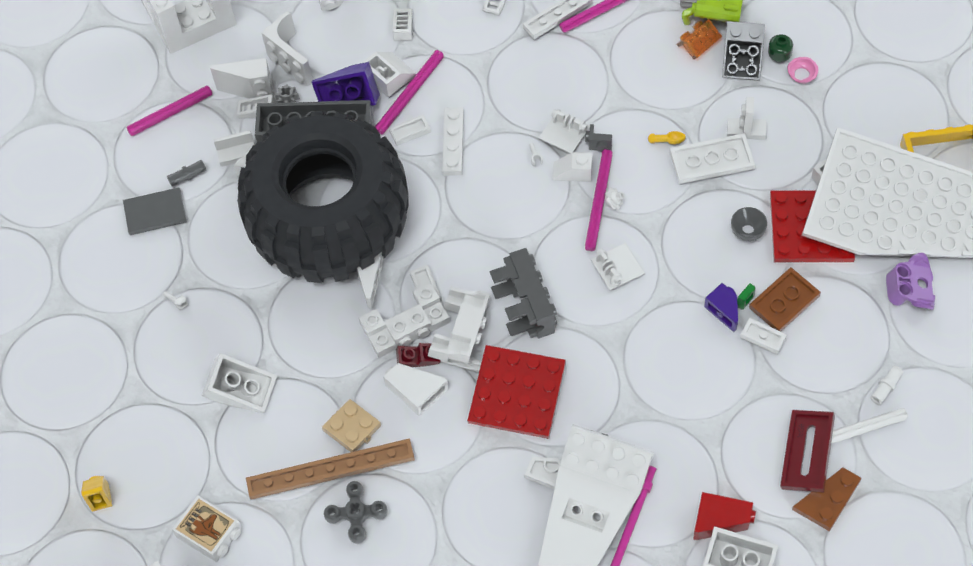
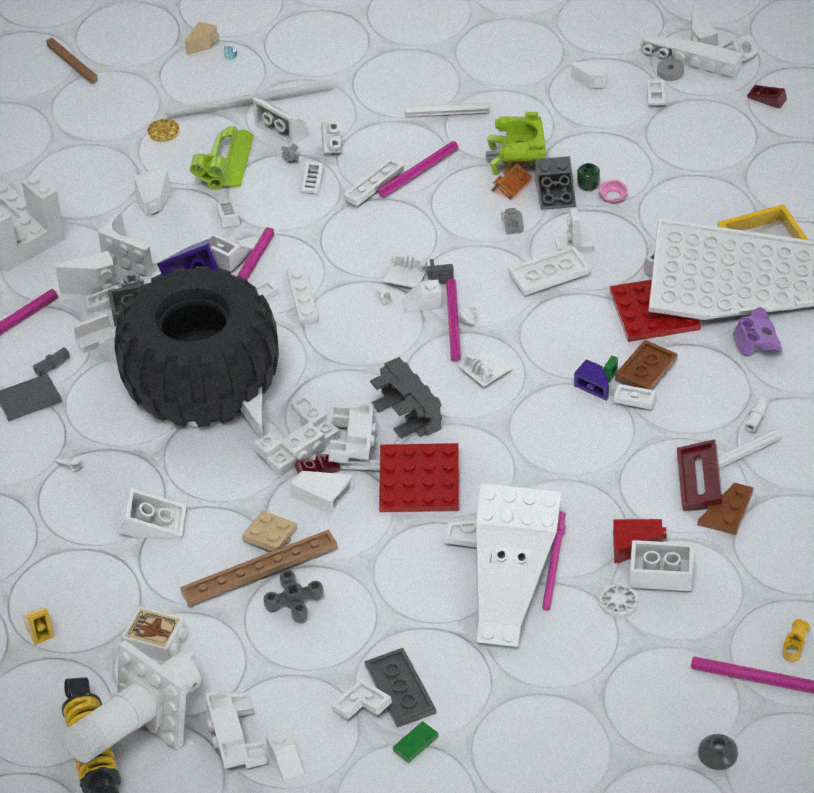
camera: 15 degrees left, 15 degrees down
(672, 137) = (507, 261): yellow piece -> none
(688, 88) = (512, 220): none -> light grey bracket
(751, 217) = (597, 309): dark grey piece -> none

